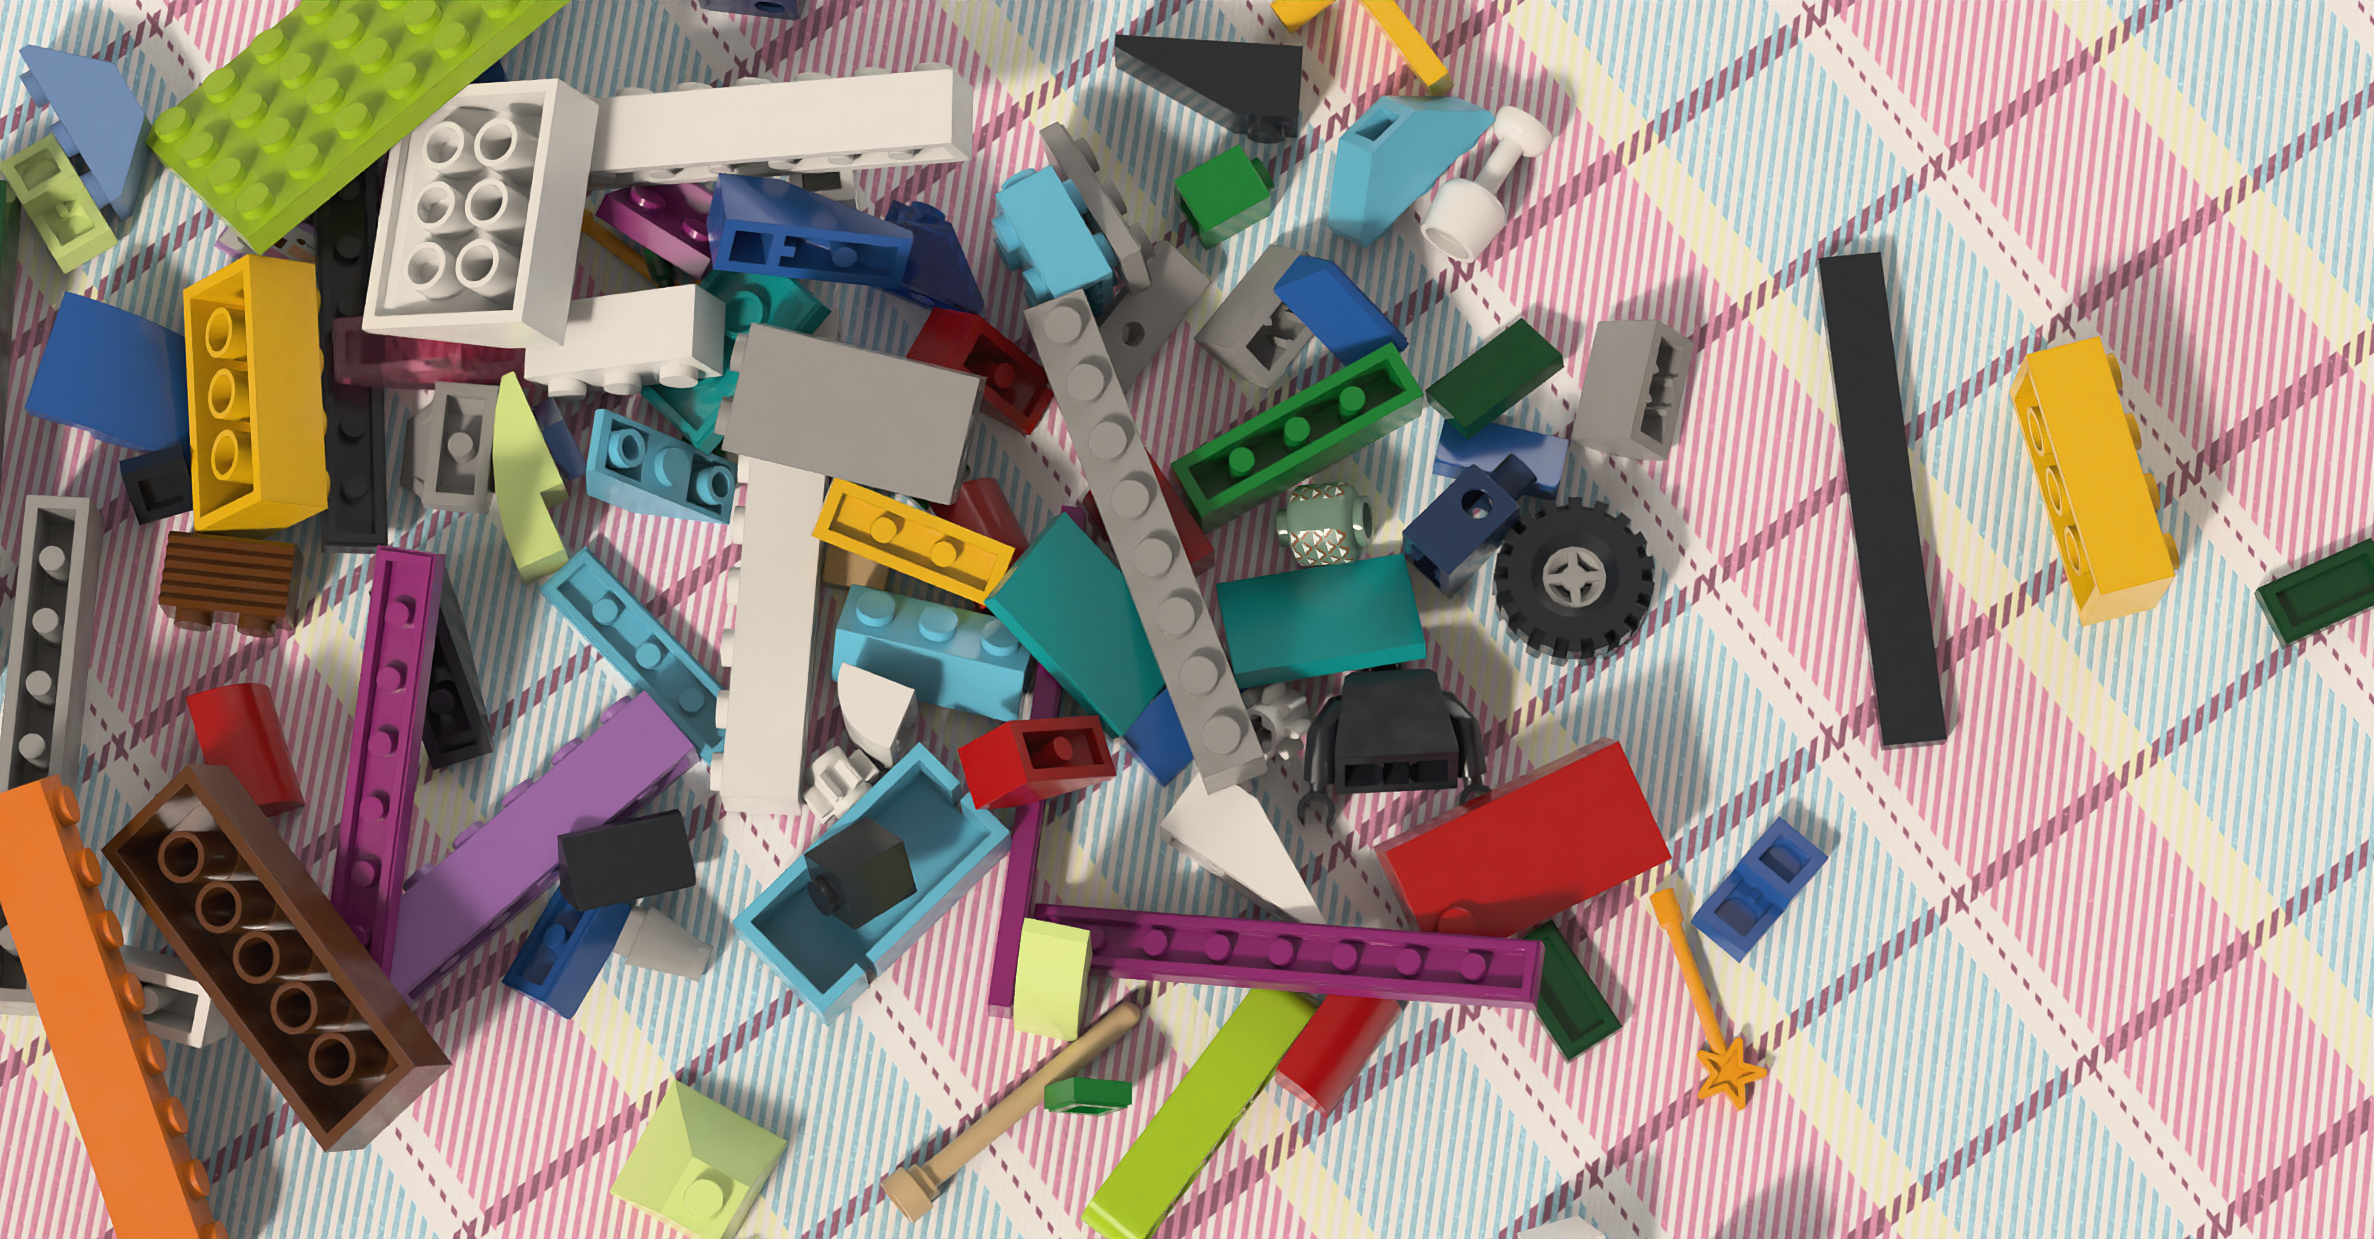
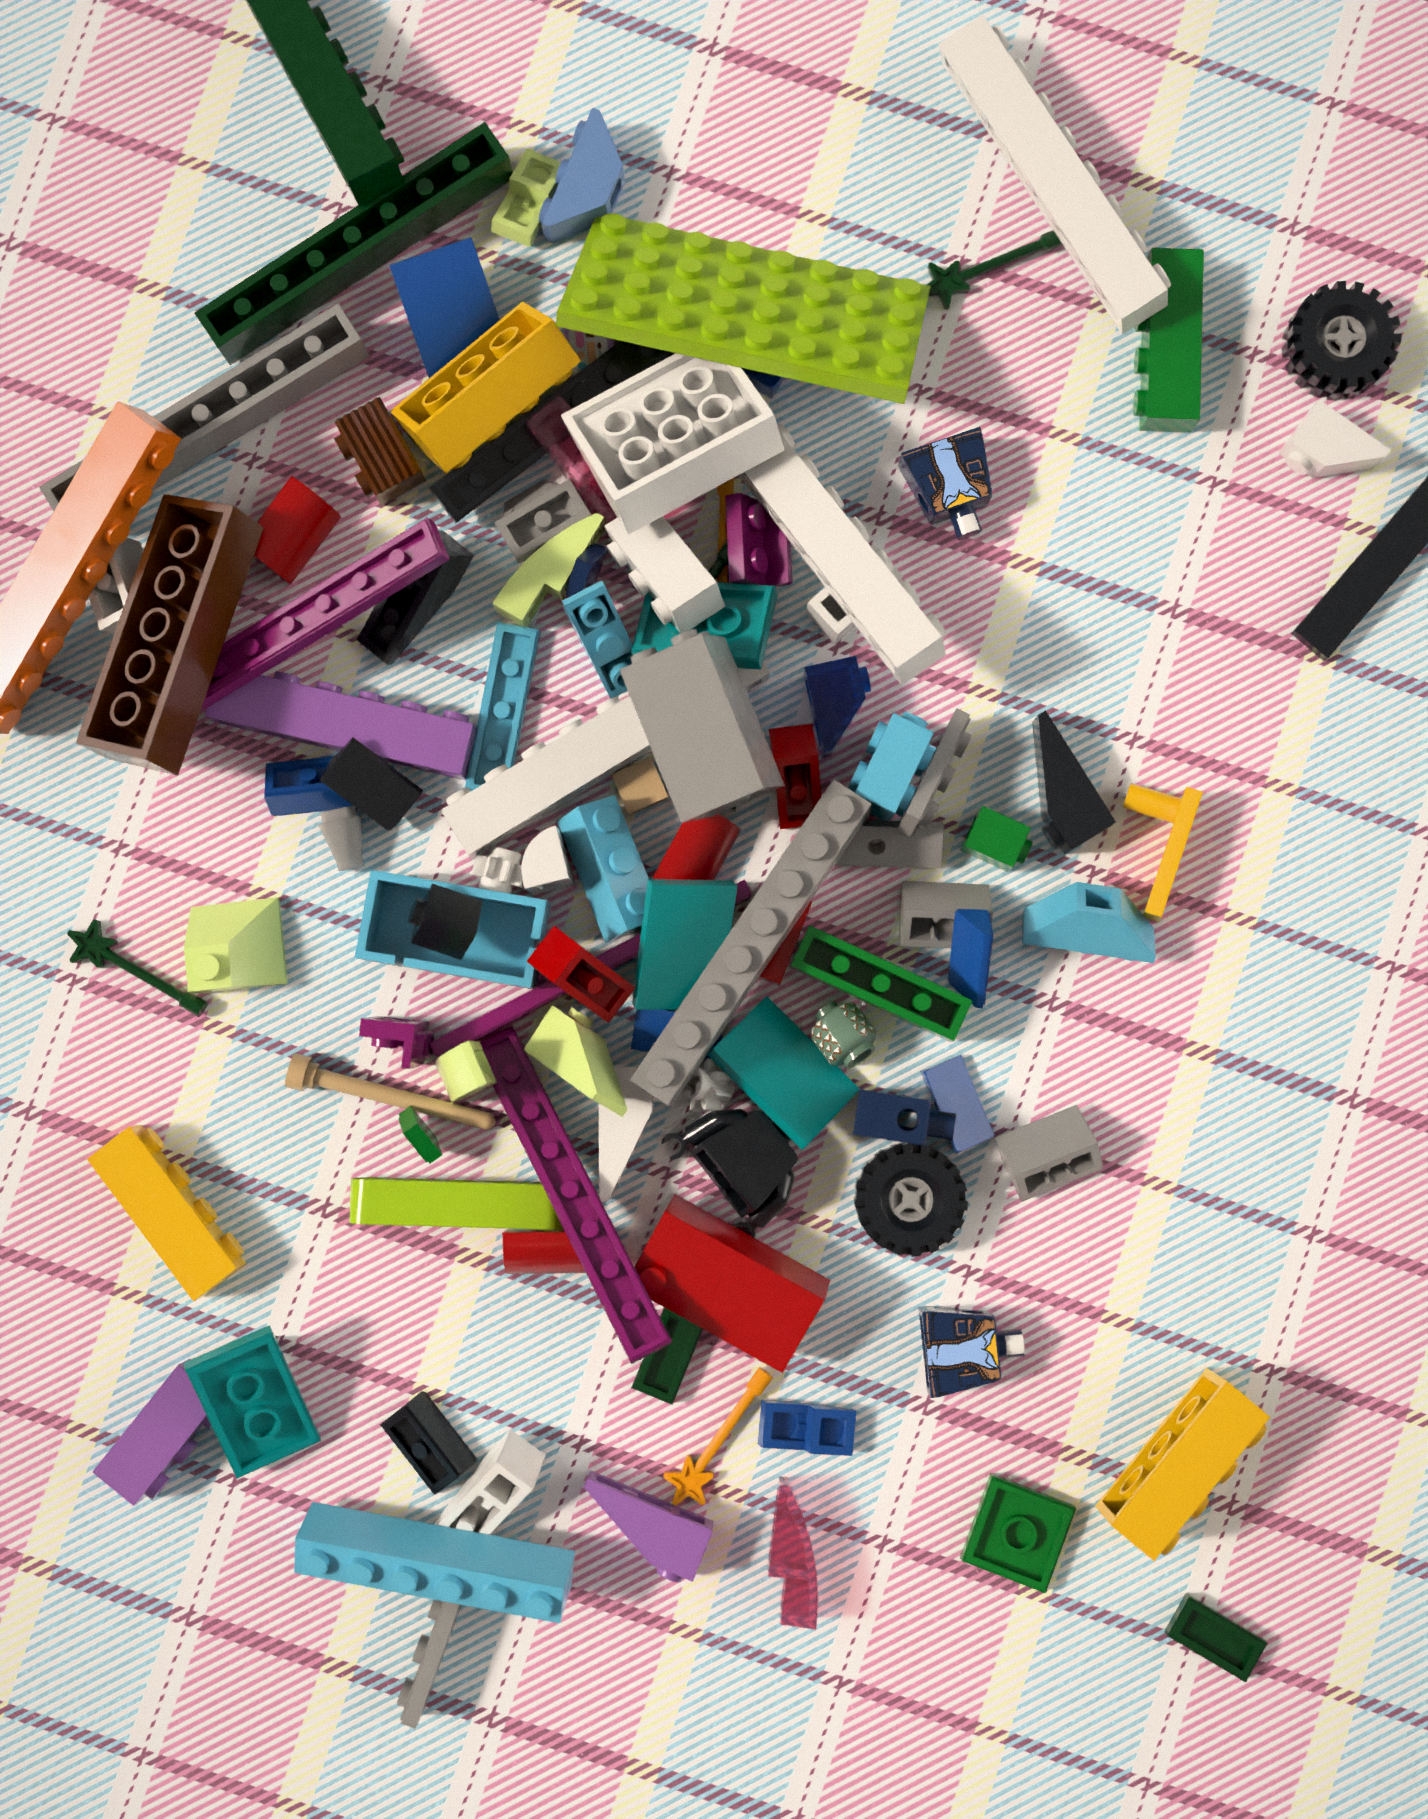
camera: 60 degrees right, 10 degrees up
(158, 484) = (405, 369): black tile -> none
(796, 233) = (791, 617): blue slope -> none
(911, 541) = (657, 822): yellow piece -> none
(943, 1033) = (395, 1032): none -> magenta bracket
(1123, 842) = (578, 1056): none -> yellowish green slope
(1467, 213) = (1084, 984): white piece -> none
(1494, 378) = (999, 1069): dark green tile -> none
(1760, 1142) = (659, 1530): none -> medium lavender slope
(1789, 642) = (963, 1348): none -> torso
(1881, 502) = (1086, 1340): black tile -> none
(1899, 1003) = (793, 1560): none -> clear pink slope
(2052, 733) = (1018, 1533): none -> green tile

